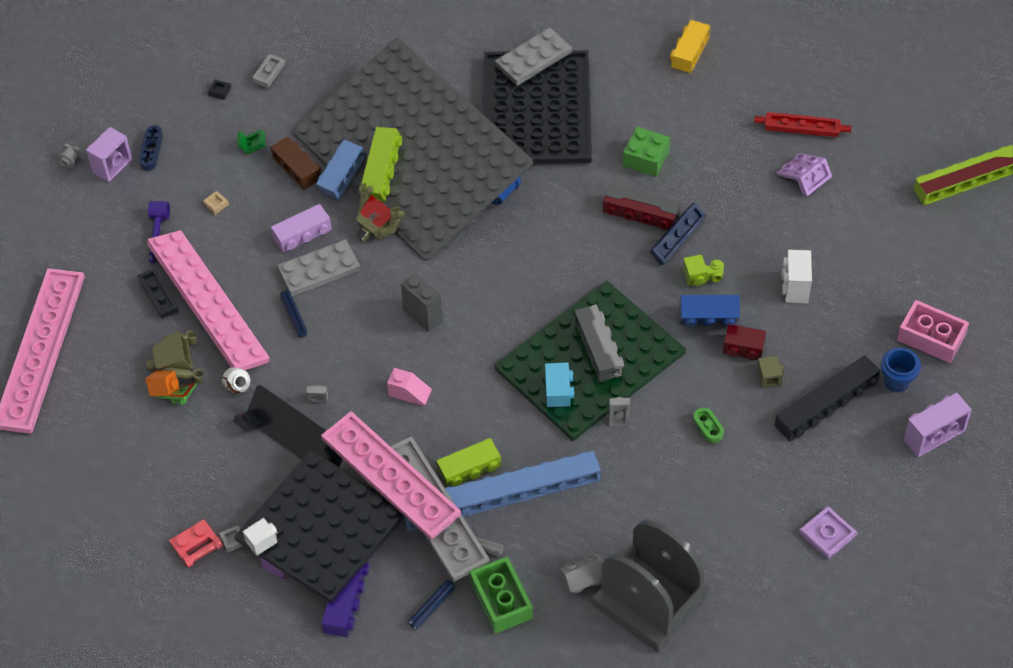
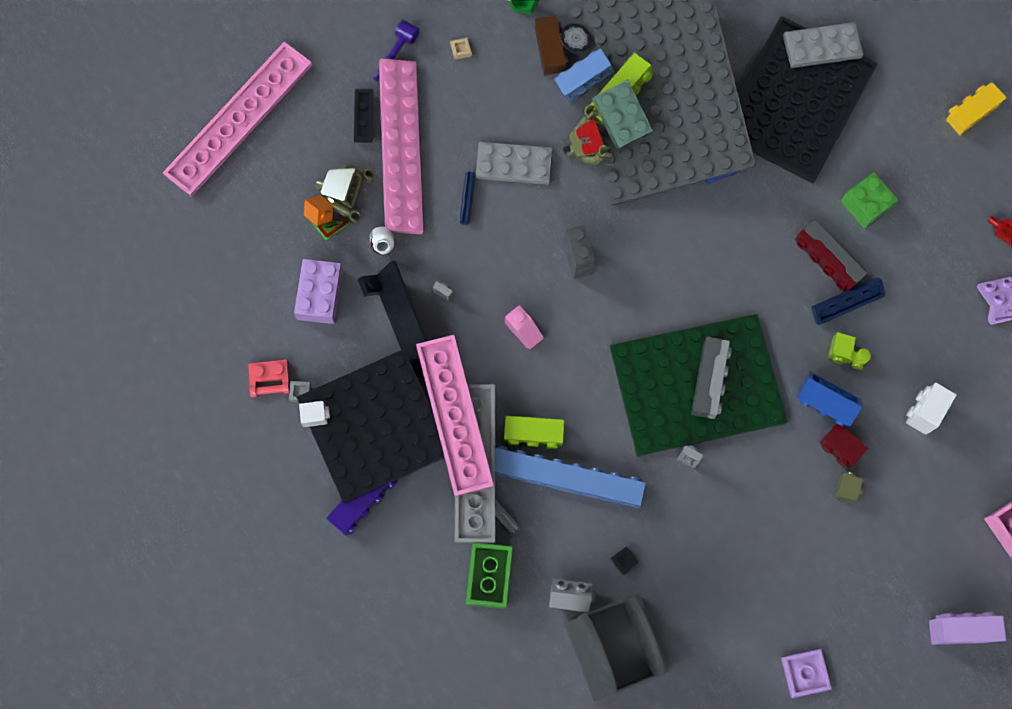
camera: 25 degrees right, 20 degrees up
(201, 449) = (318, 291): none -> lavender brick
(301, 228) = (519, 116): lavender brick -> none
(315, 145) = (575, 37): none -> sticker
(394, 177) = (622, 114): none -> sand green brick
(431, 604) = (428, 547): dark blue axle -> none
(558, 384) = (651, 400): medium azure brick -> none
(614, 526) = (624, 560): none -> black tile
(709, 426) = (762, 510): bright green plate -> none
(827, 398) = (885, 543): black brick -> none
(900, 368) = (975, 552): blue piece -> none

